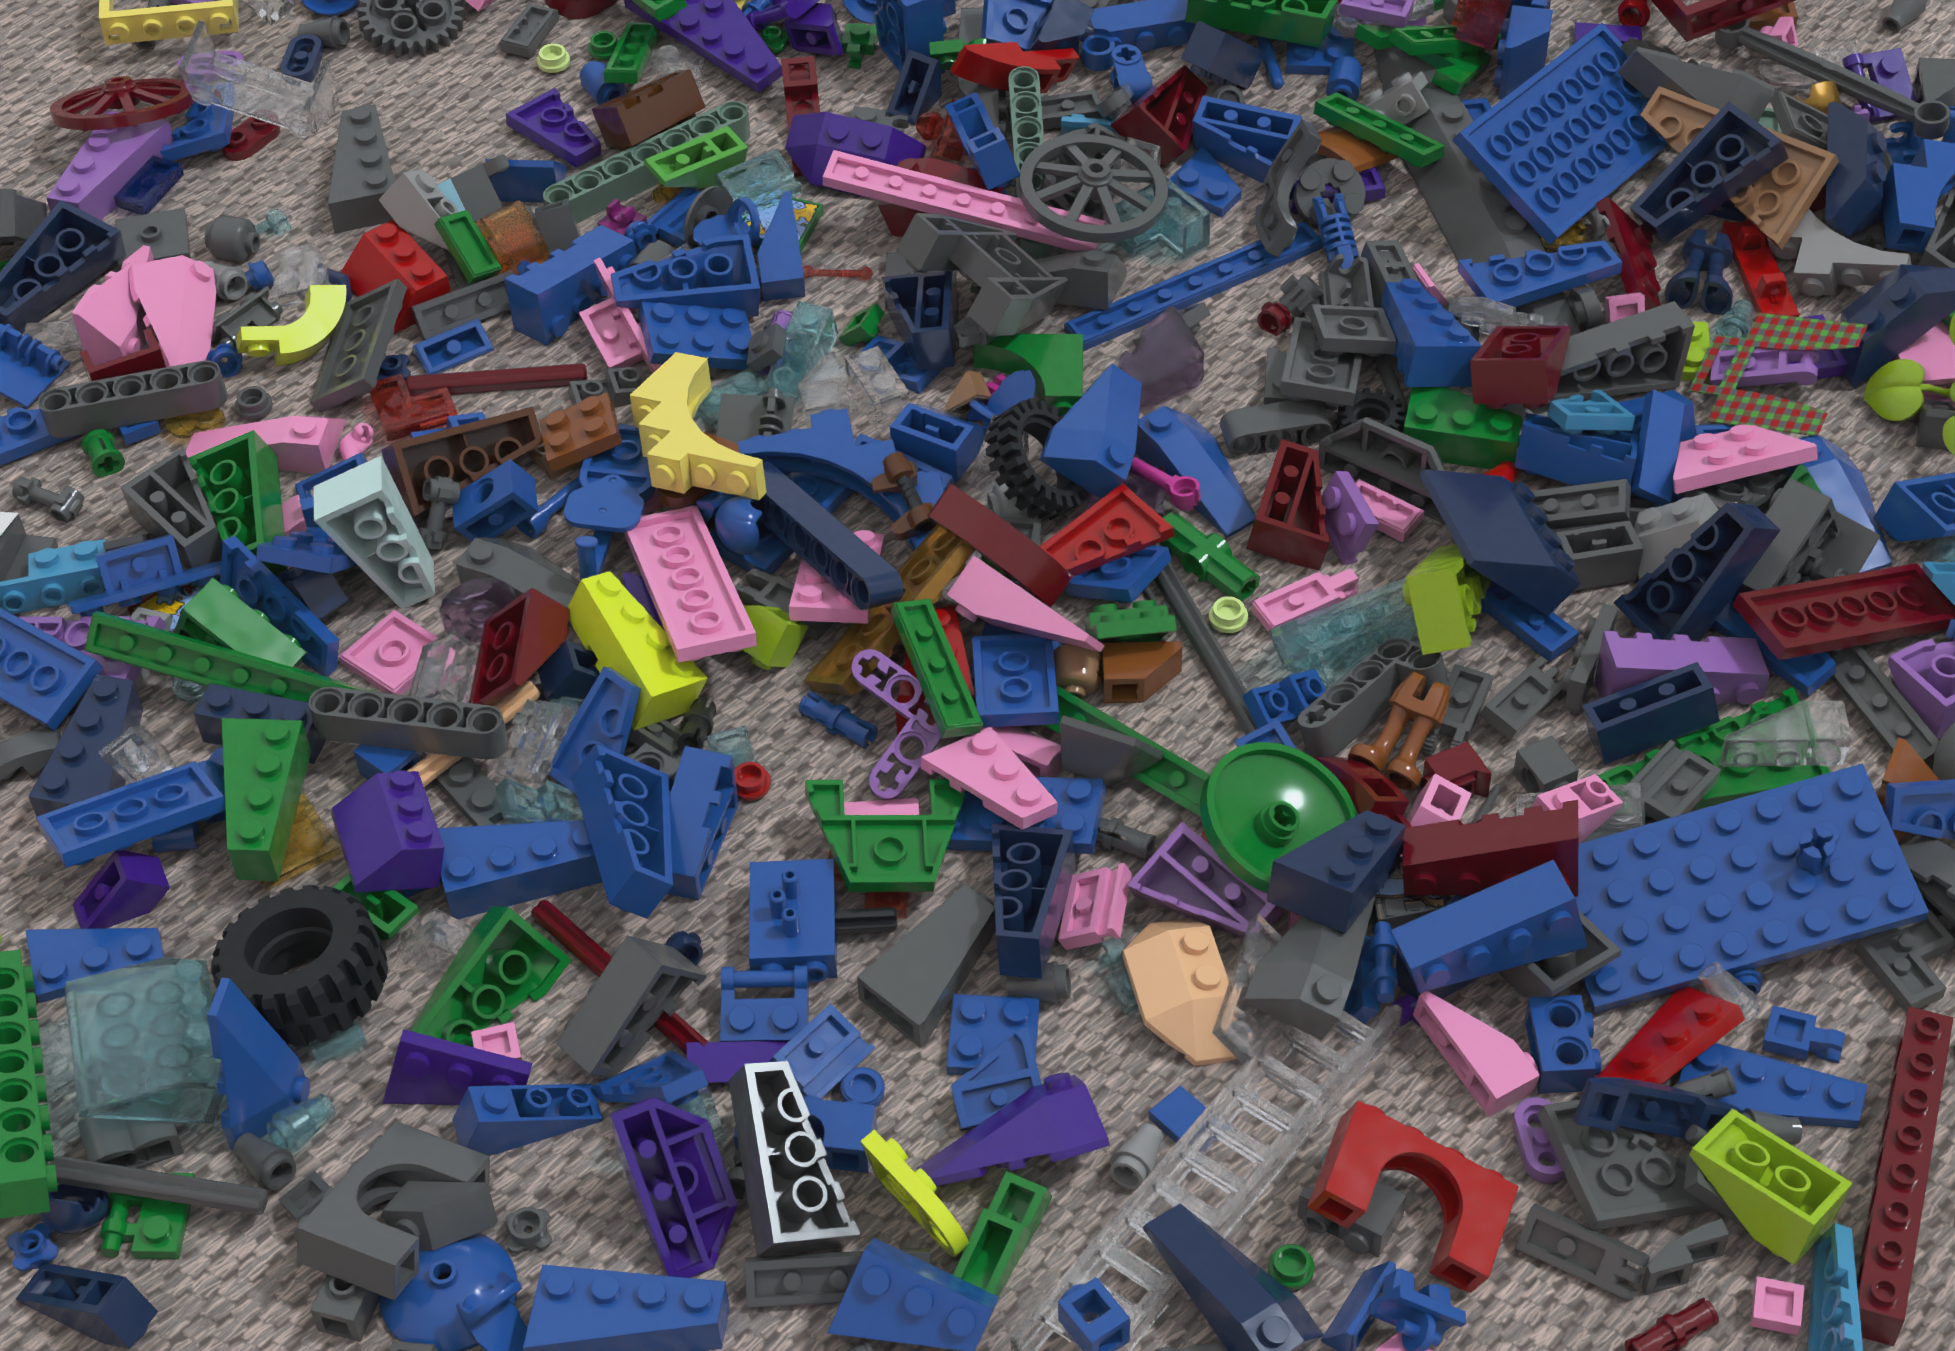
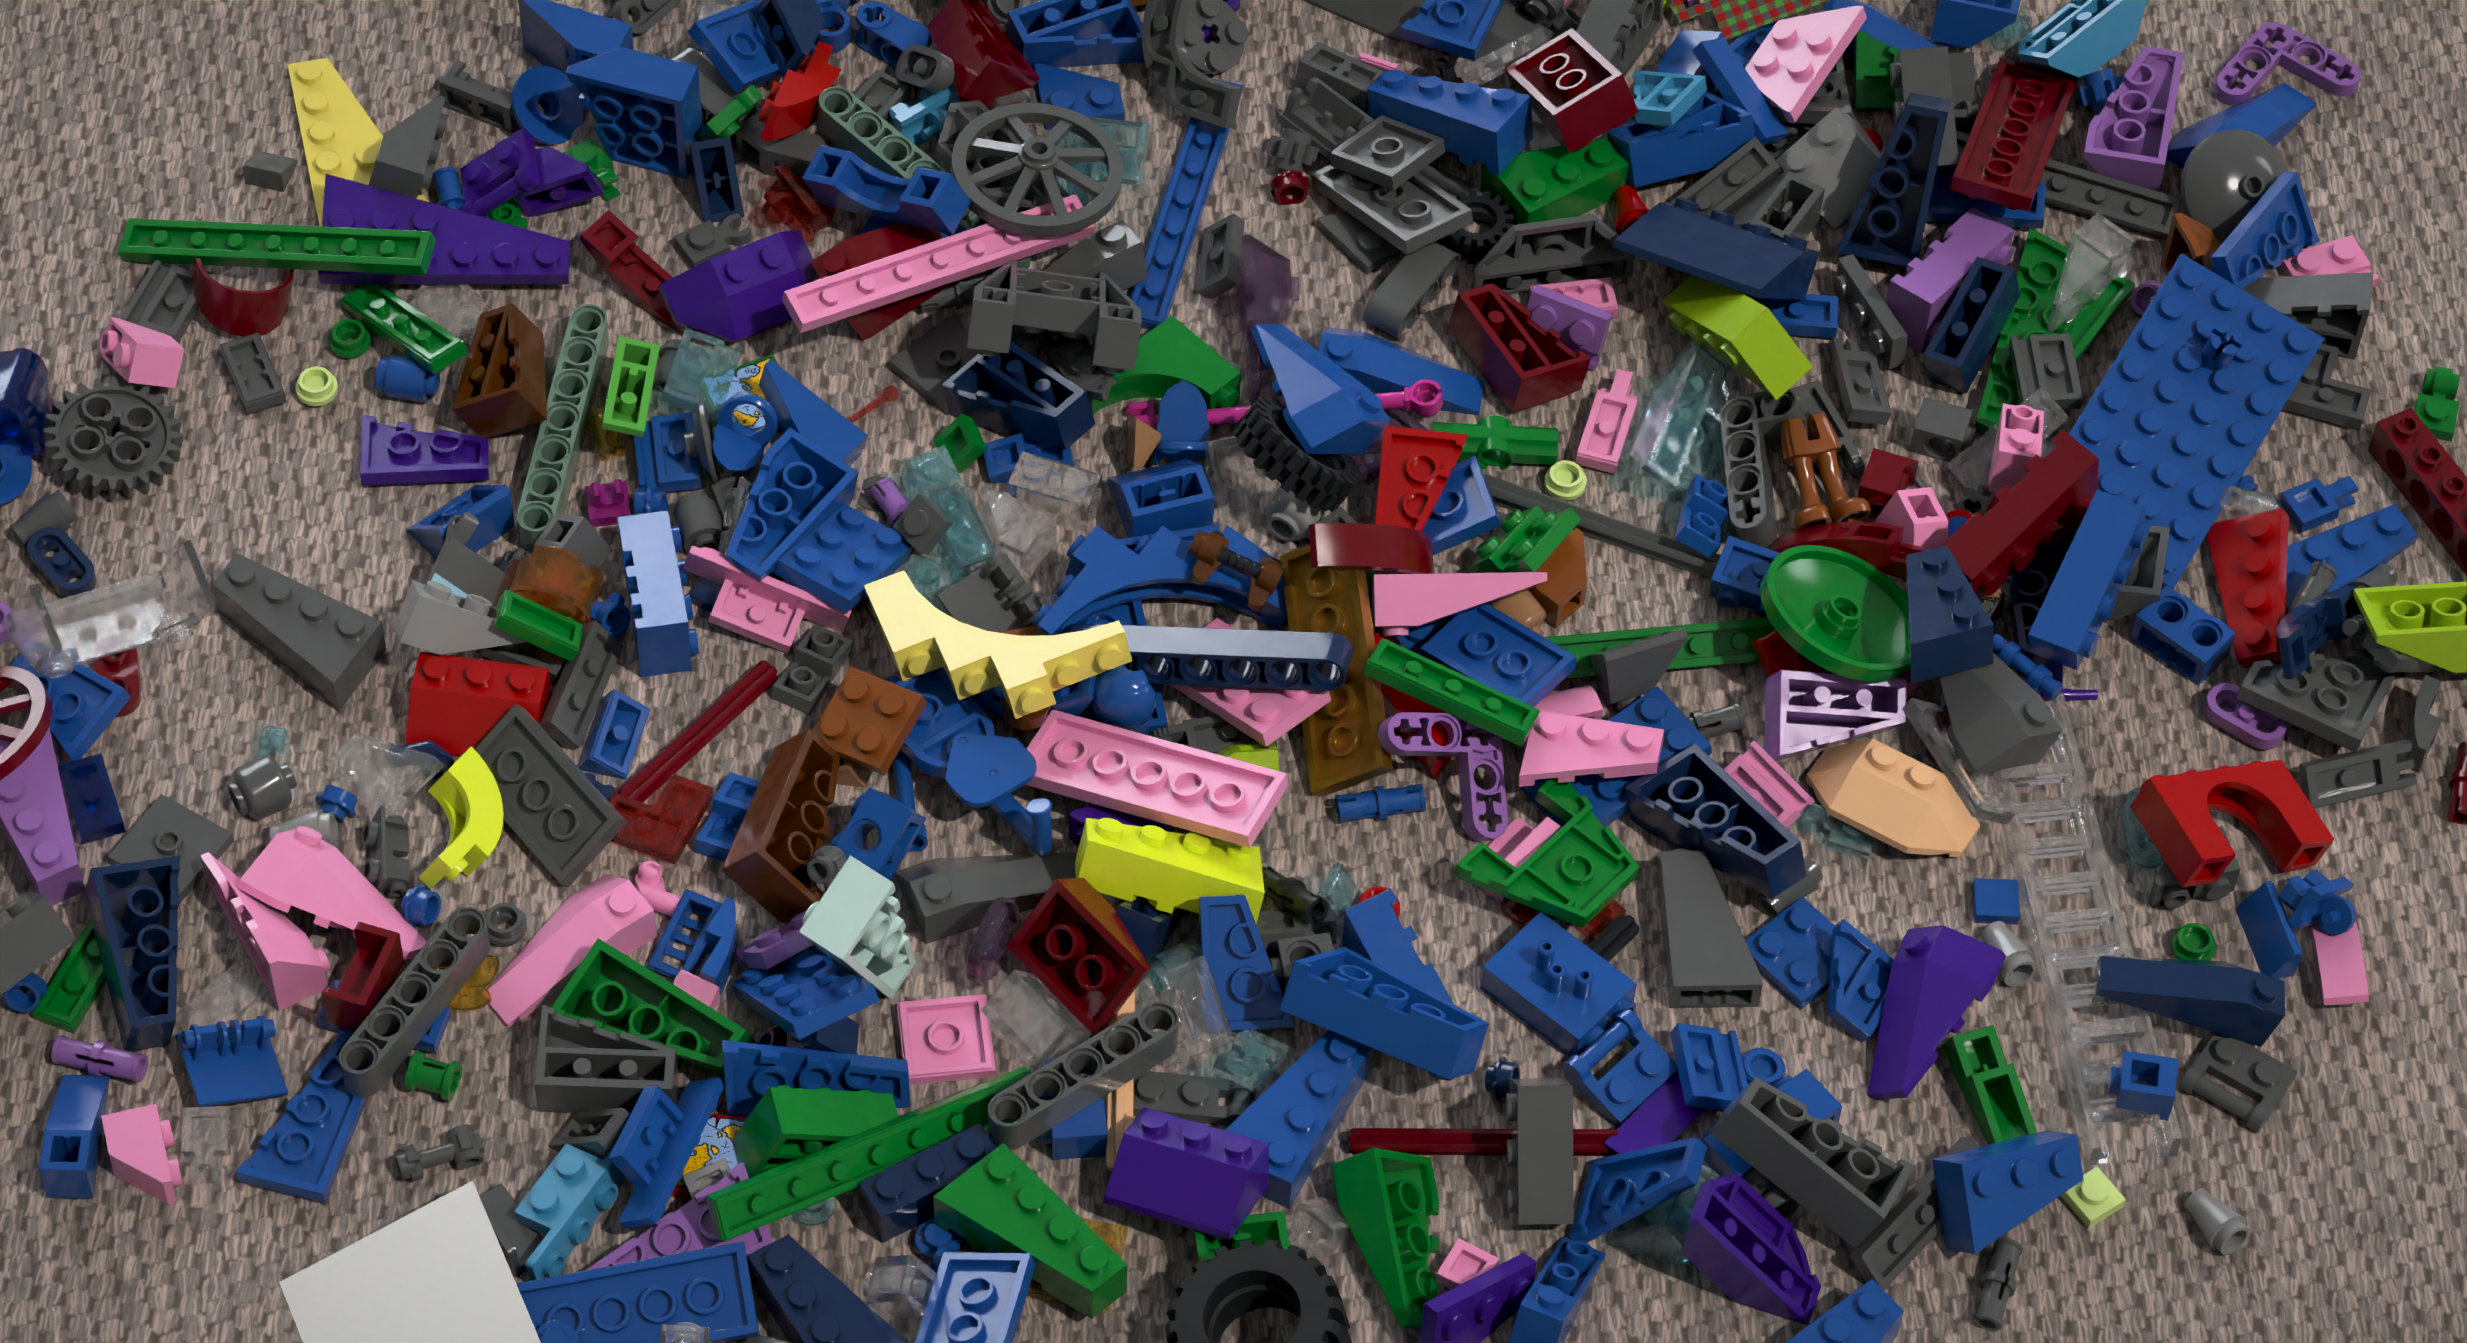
camera: 50 degrees left, 5 degrees up
(914, 1192) = (1916, 1107): neon yellow plate -> none
(1336, 230) = (1254, 68): blue hinge -> none
(1482, 1057) = (2147, 687): bright pink slope -> none

